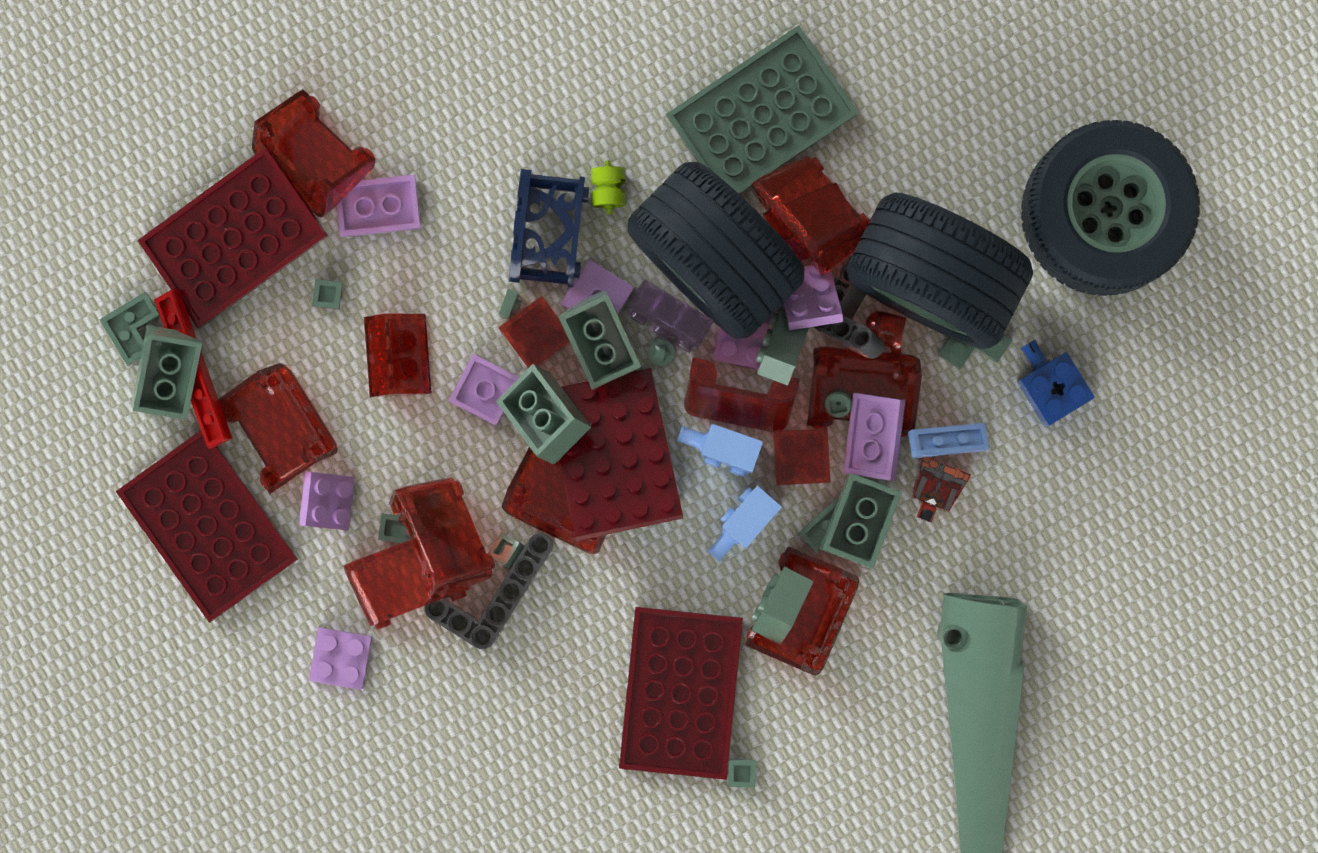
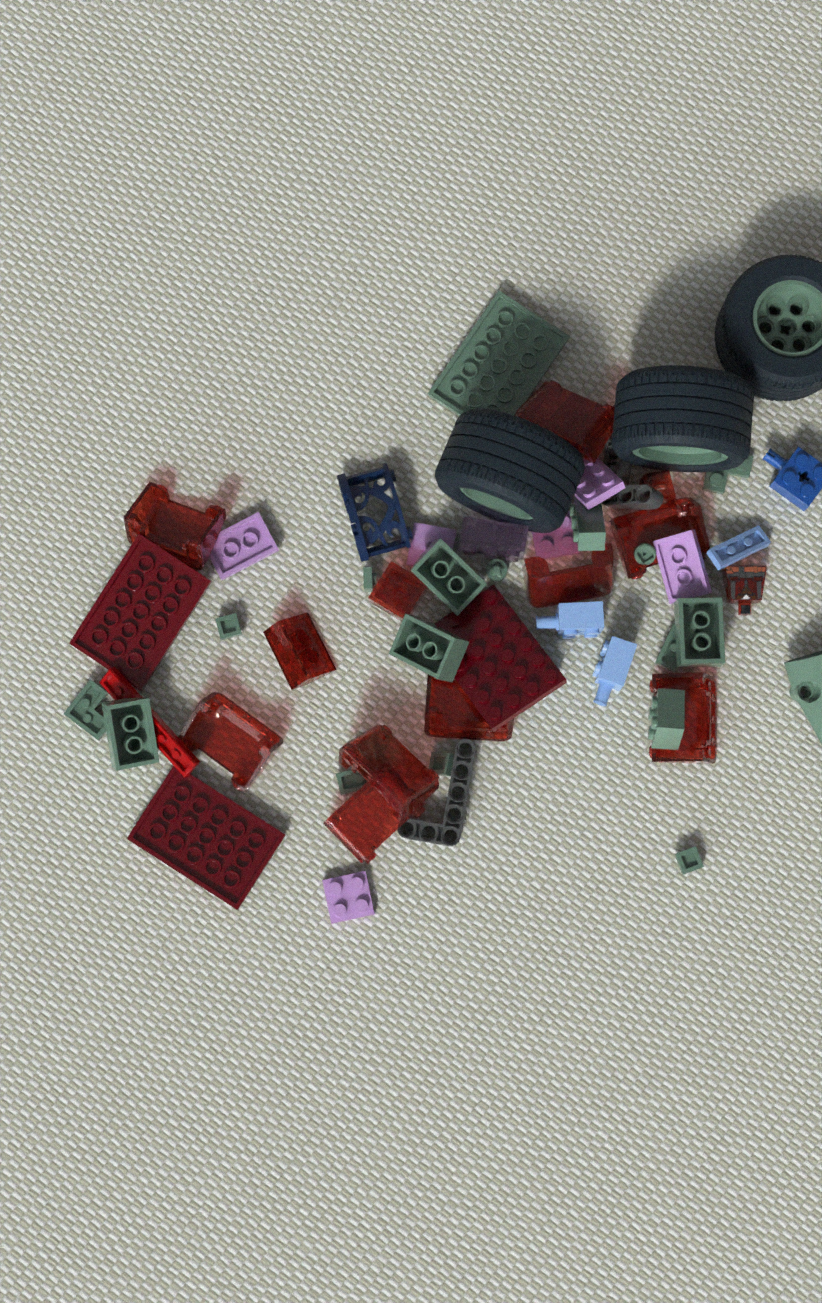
camera: 15 degrees left, 5 degrees down
(326, 501) = (290, 780): lavender plate -> none
(481, 388) = (373, 649): lavender plate -> none
(608, 187) = (405, 459): lime wheel -> none
(680, 693) = (617, 818): dark red plate -> none
(801, 457) = (634, 604): clear red brick -> none

